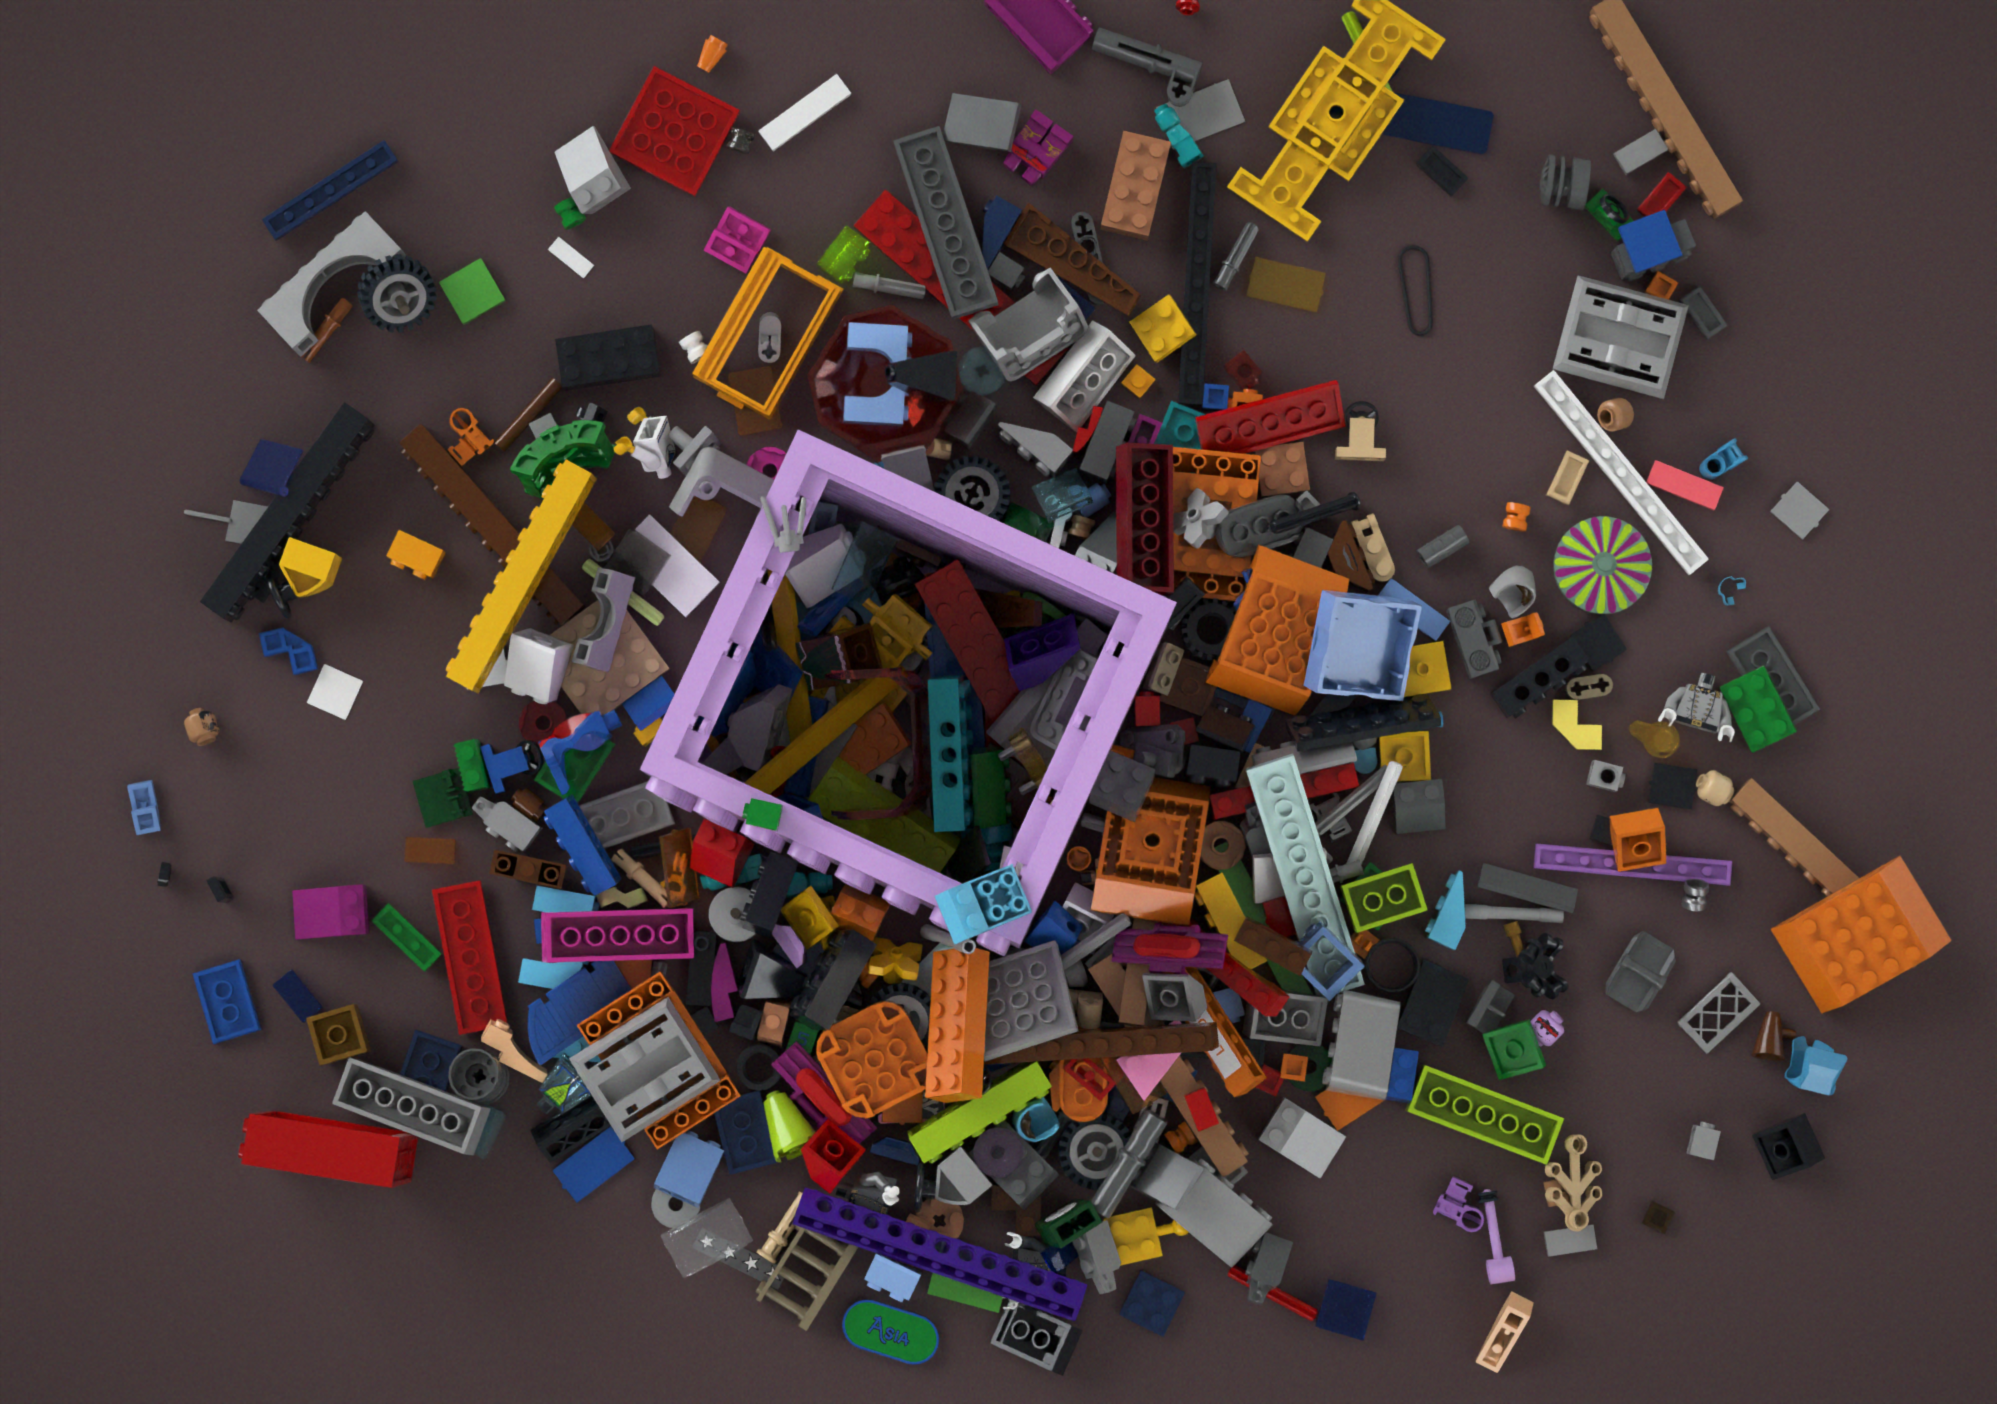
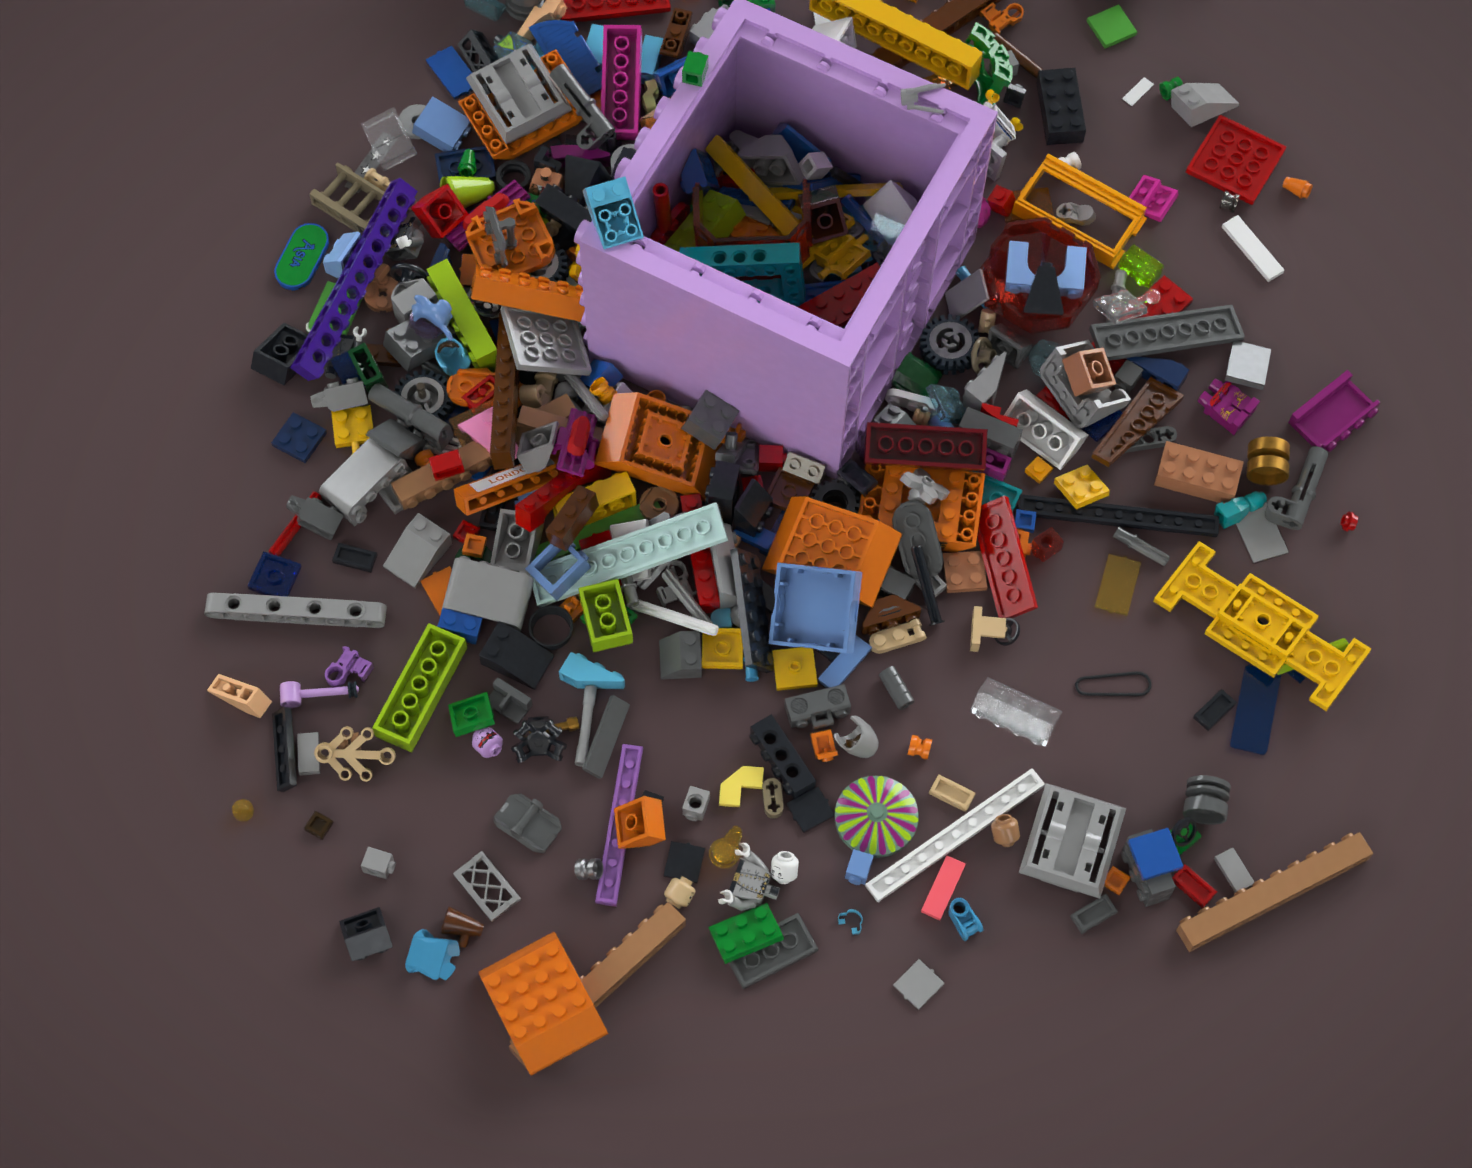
camera: 90 degrees right, 20 degrees down
(674, 977) = (585, 107): none -> dark grey piece
(749, 1128) = (467, 165): none -> green cone
(761, 432) = (1001, 200): none -> red brick
(764, 670) = (815, 165): none -> white brick
(882, 1071) = (495, 227): none -> dark grey shield
(914, 277) = (1124, 305): none -> clear plate
(992, 451) = (985, 354): none -> dark tan piece
(997, 1141) = (437, 313): none -> medium blue animal
(1022, 319) = (1088, 371): none -> nougat brick
(1082, 923) = (602, 390): none -> light orange wheel
(1114, 100) = (1268, 461): none -> pearl gold wheel
(1311, 1214) = (354, 557): none -> black tile
(1390, 1278) = (295, 610): none -> light grey beam
(1462, 404) = (1015, 711): none -> clear slope
(1570, 1269) = (284, 749): none -> black plate
(1646, 1309) = (242, 810): none -> clear yellow tile
(1670, 583) = (859, 867): none -> medium blue brick
(1678, 668) = (784, 867): none -> white head

